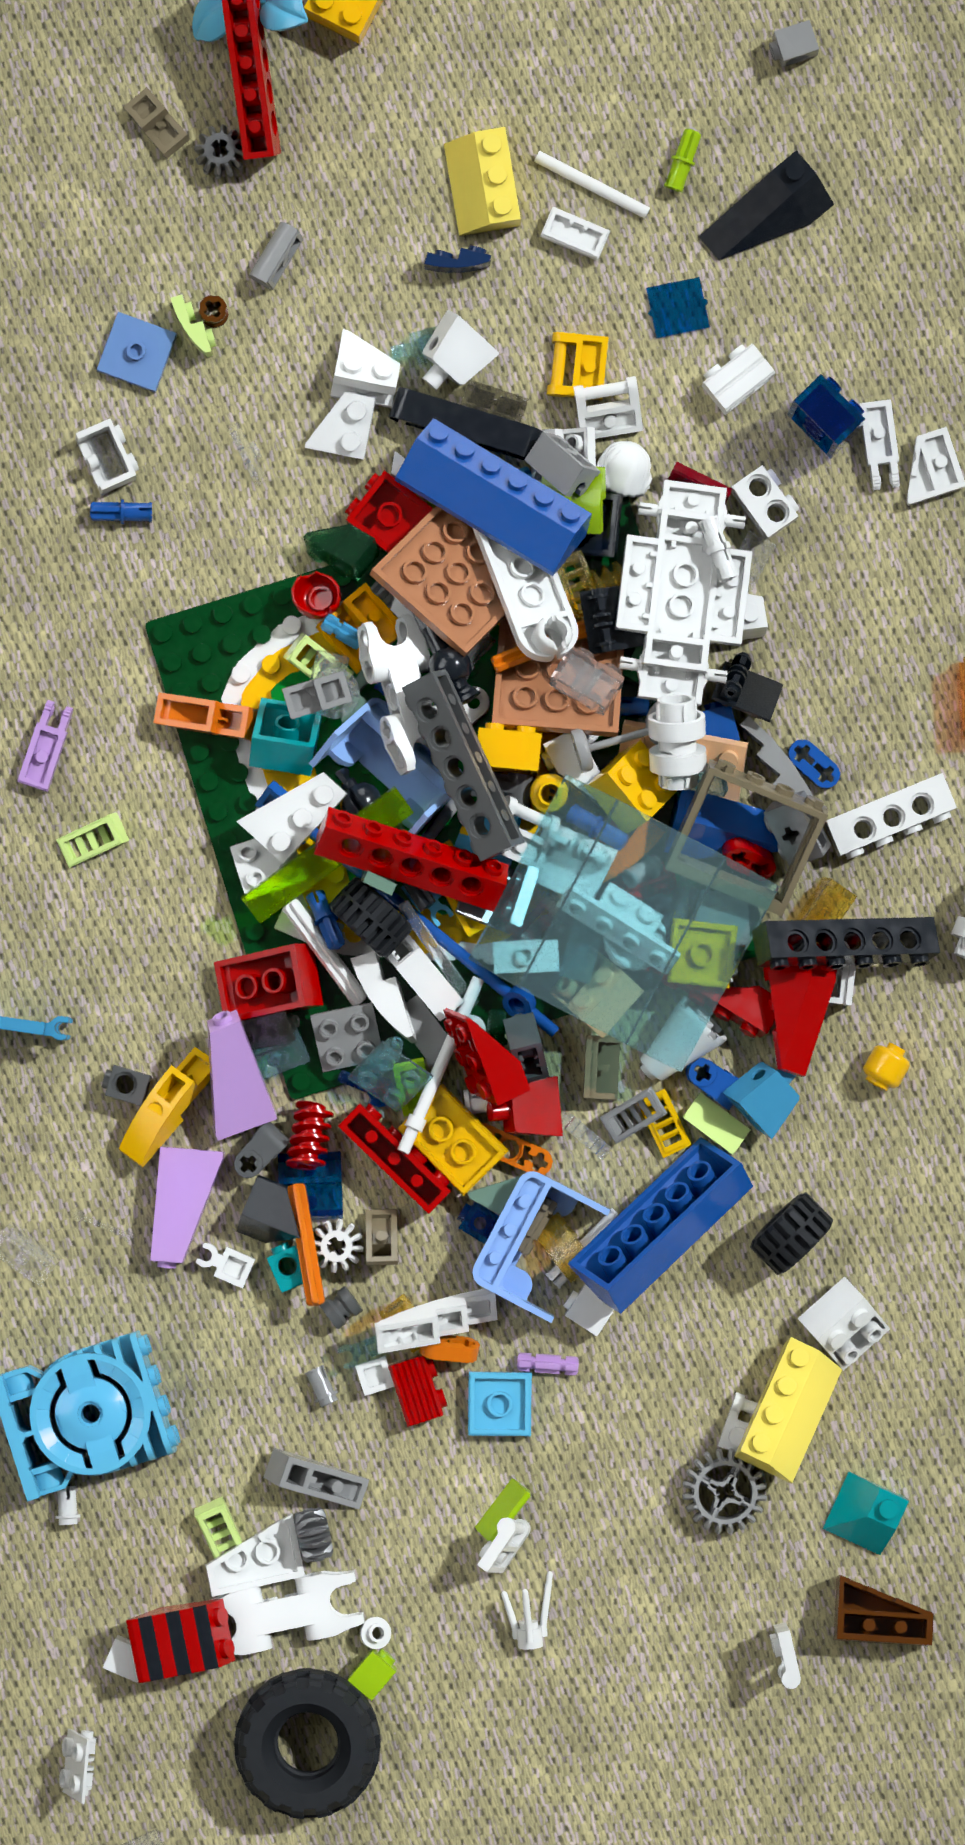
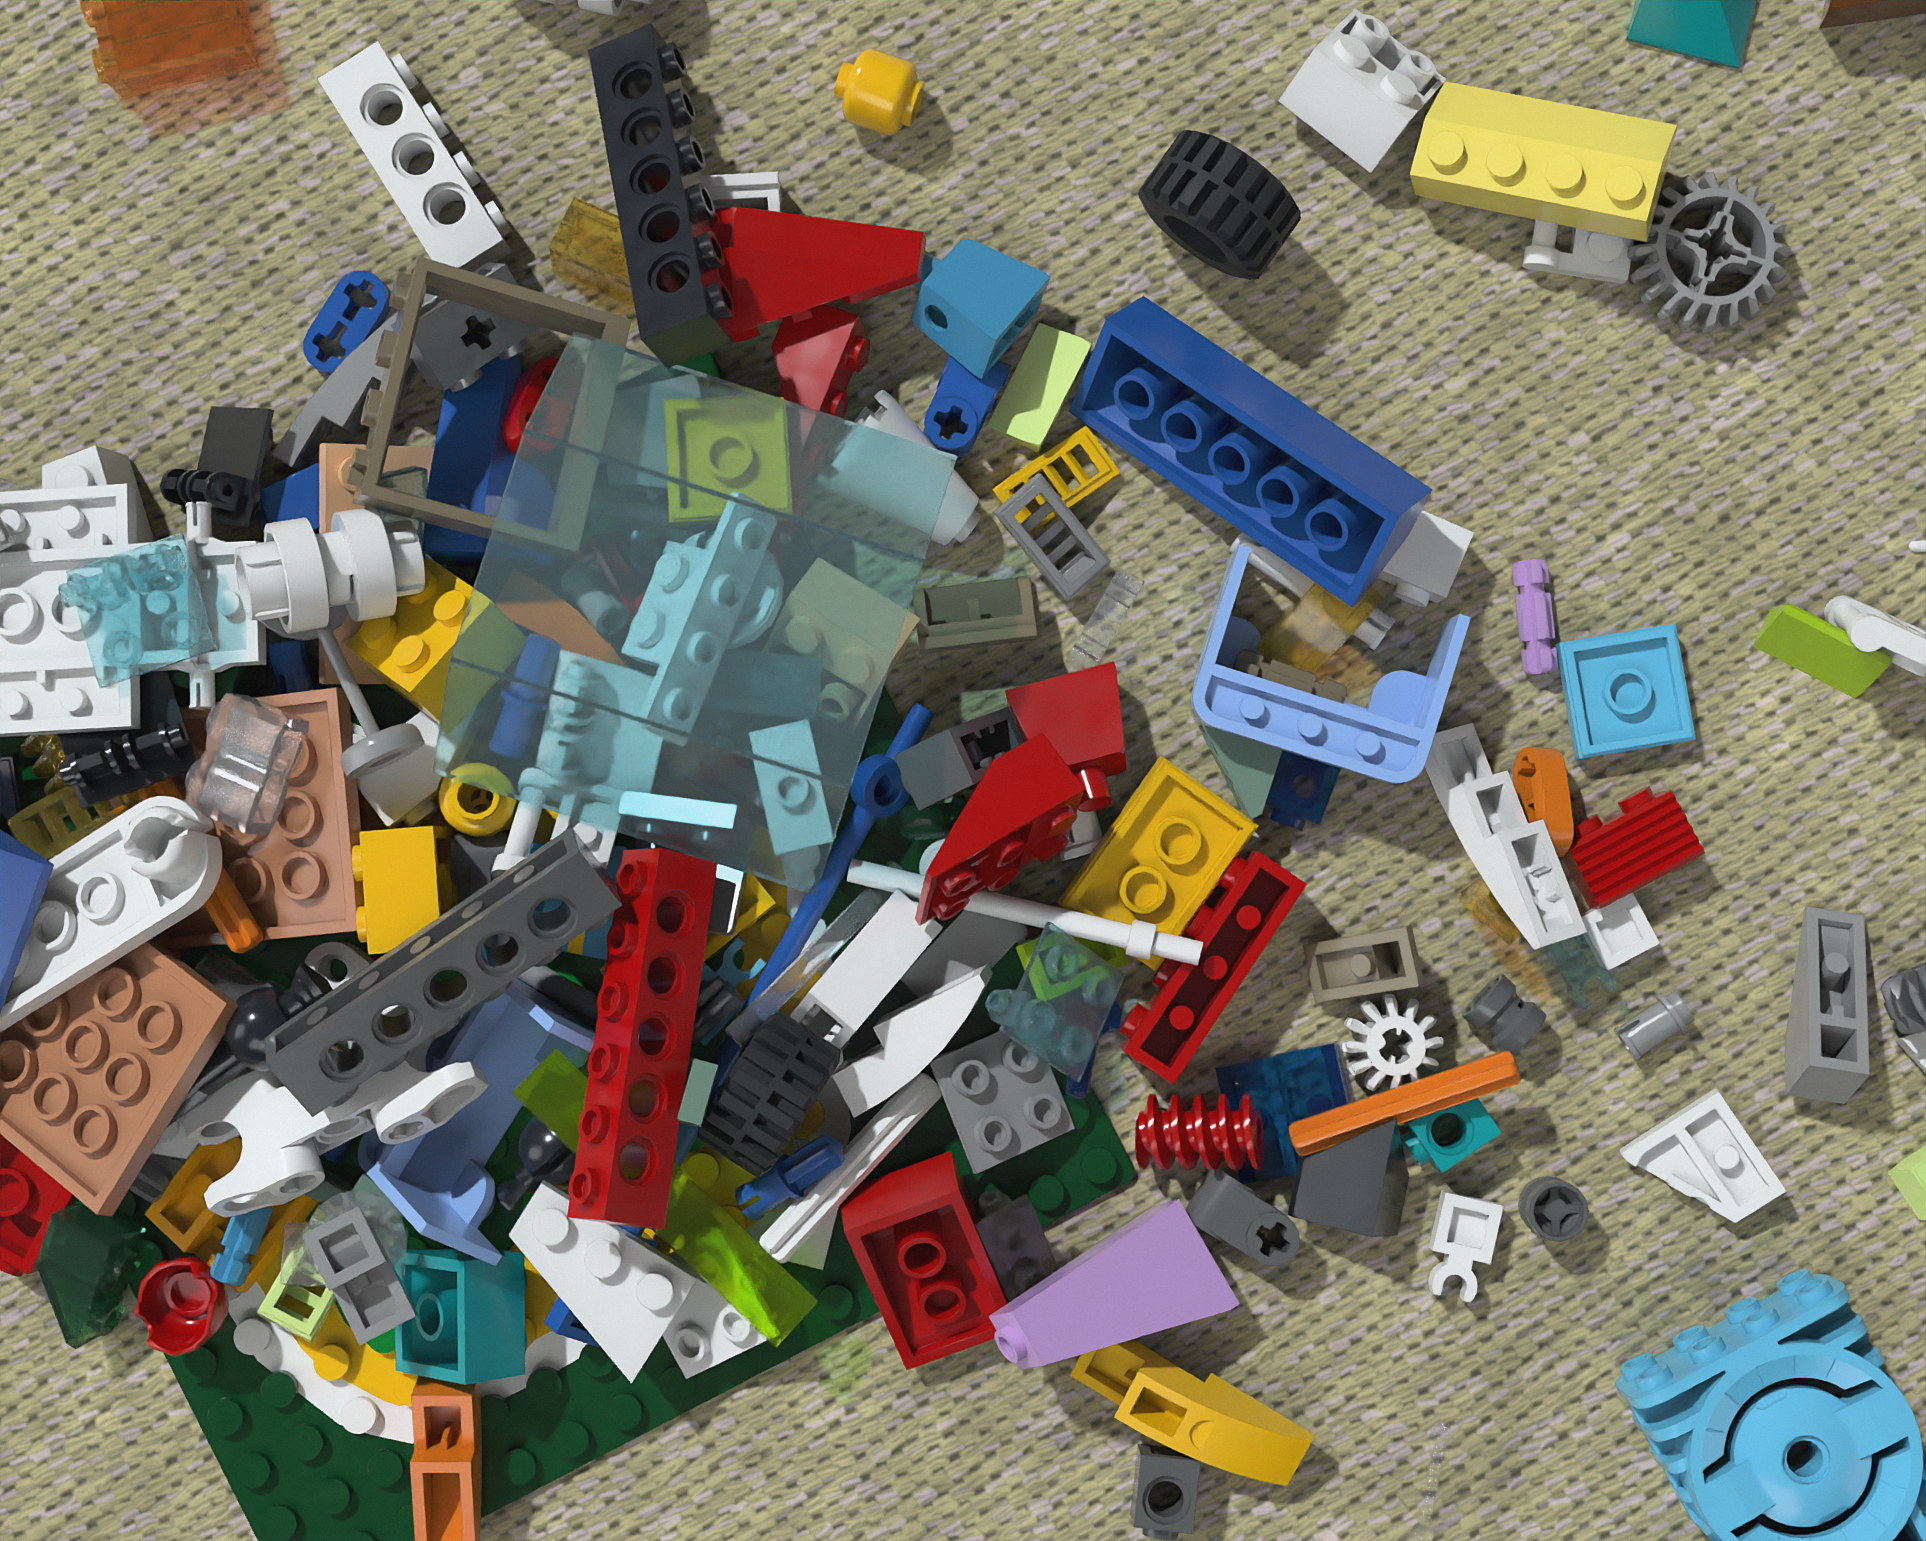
camera: 105 degrees left, 0 degrees up
(181, 1197) = (1358, 1351): lavender slope -> none
(232, 1316) = (1564, 1210): none -> dark grey wheel
(247, 1401) = (1707, 1158): none -> white wing
(281, 1057) = (1061, 1210): clear light blue slope -> none
(534, 1151) = (1150, 710): orange beam -> none
(673, 642) = (139, 610): none -> clear light blue hinge

